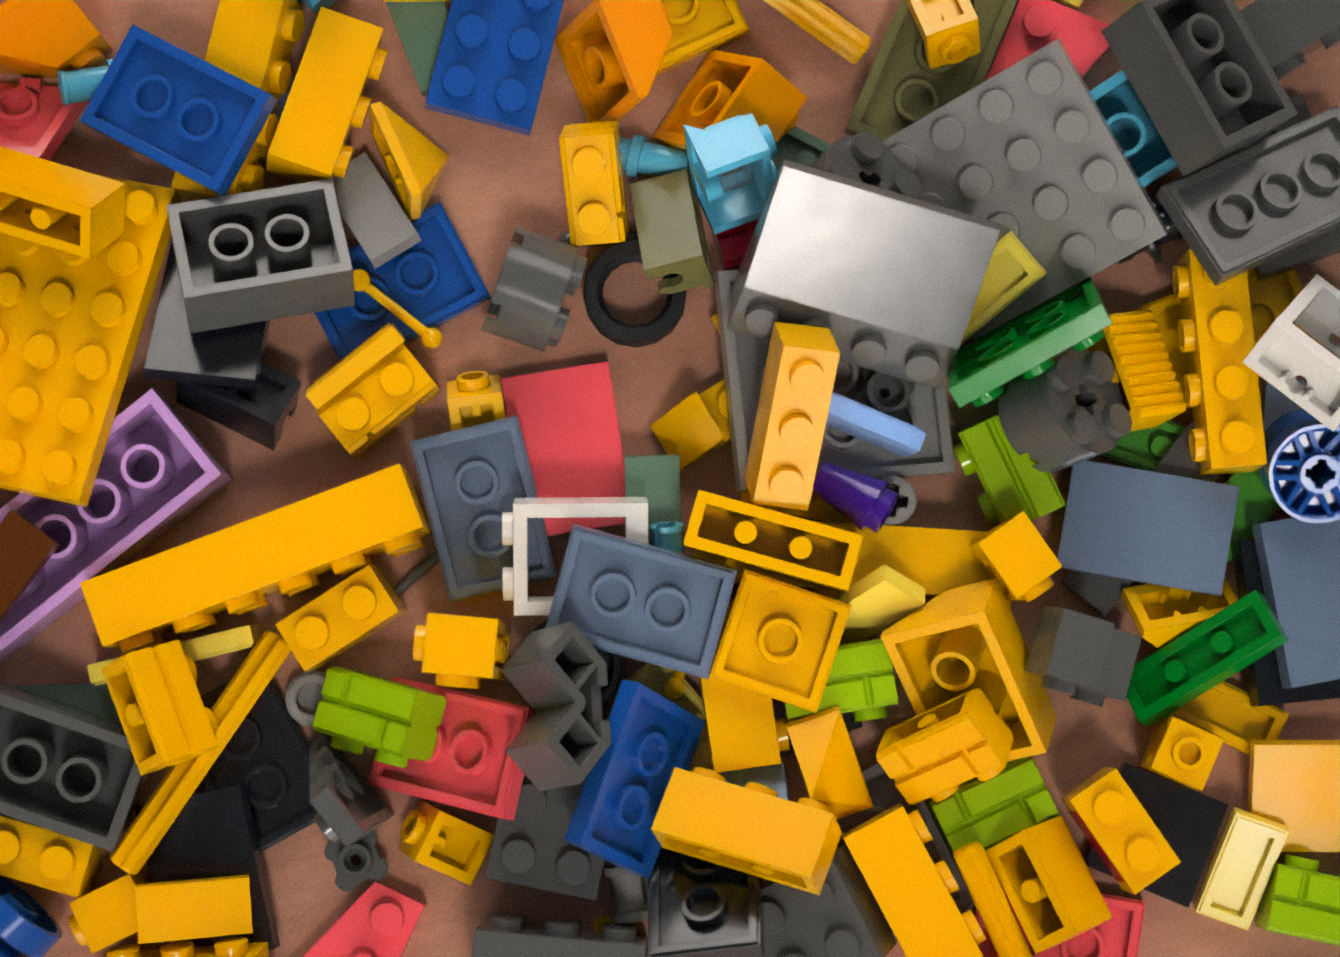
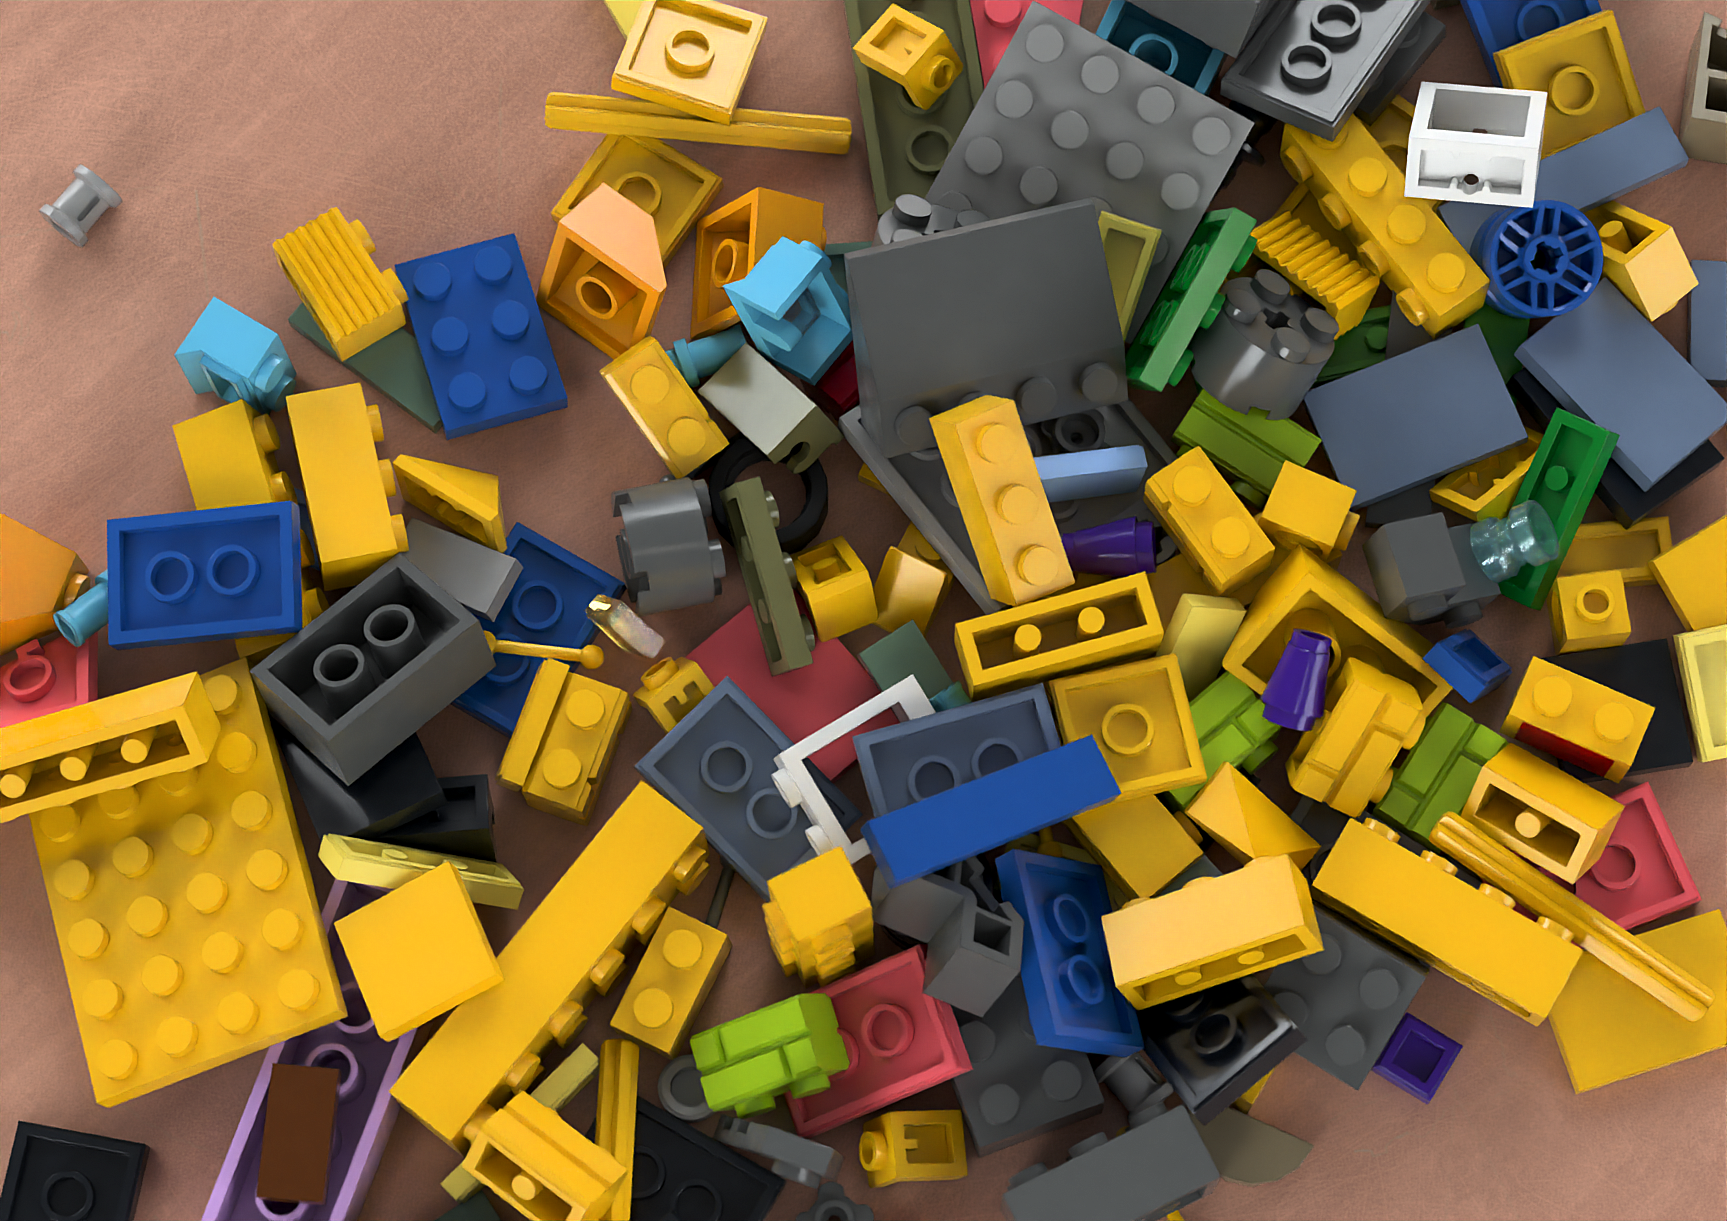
camera: 25 degrees left, 10 degrees down
(162, 492) = (418, 951): none -> yellow tile
(205, 428) = (396, 865): none -> light yellow tile
(467, 331) = (624, 626): none -> clear yellow tile
(592, 360) = (768, 576): none -> olive plate
(633, 649) = (990, 811): none -> blue tile
(637, 392) = (835, 588): none -> yellow slope
(927, 685) = (1299, 682): none -> dark purple cone
(938, 520) = (1208, 523): none -> yellow brick
(1066, 740) = (1468, 665): none -> blue tile
(1158, 670) = (1511, 542): none -> clear light blue wheel

